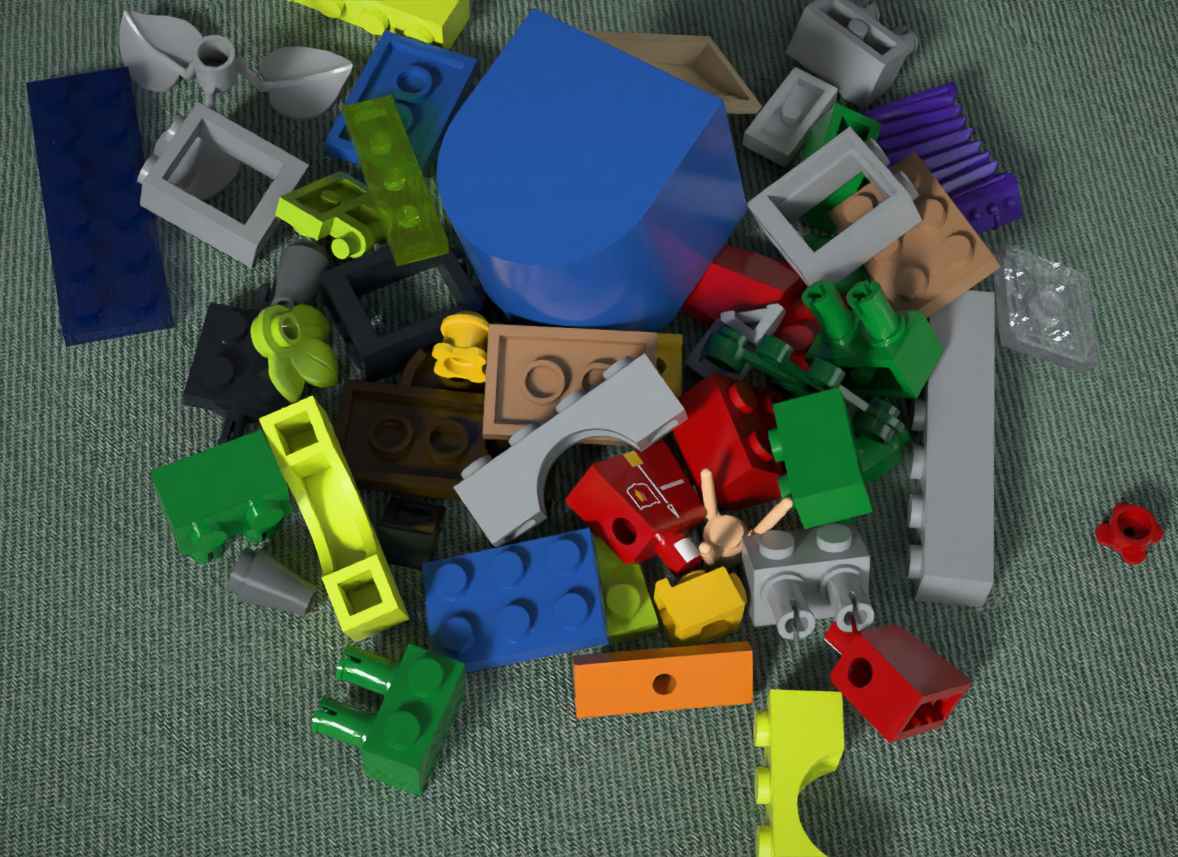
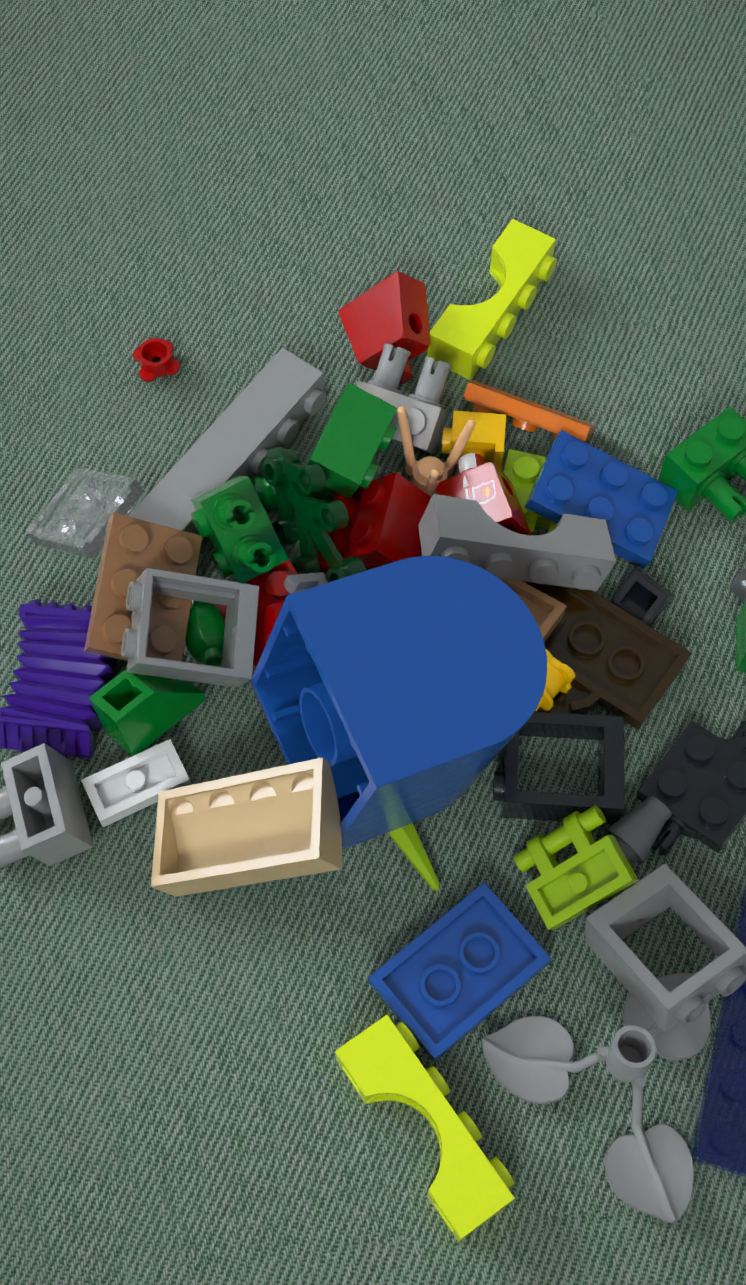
camera: 145 degrees left, 5 degrees up
(295, 348) = (671, 760): lime plate -> none
(340, 527) = (707, 640): neon yellow arch -> none
(395, 180) = (518, 866): clear neon green tile -> none

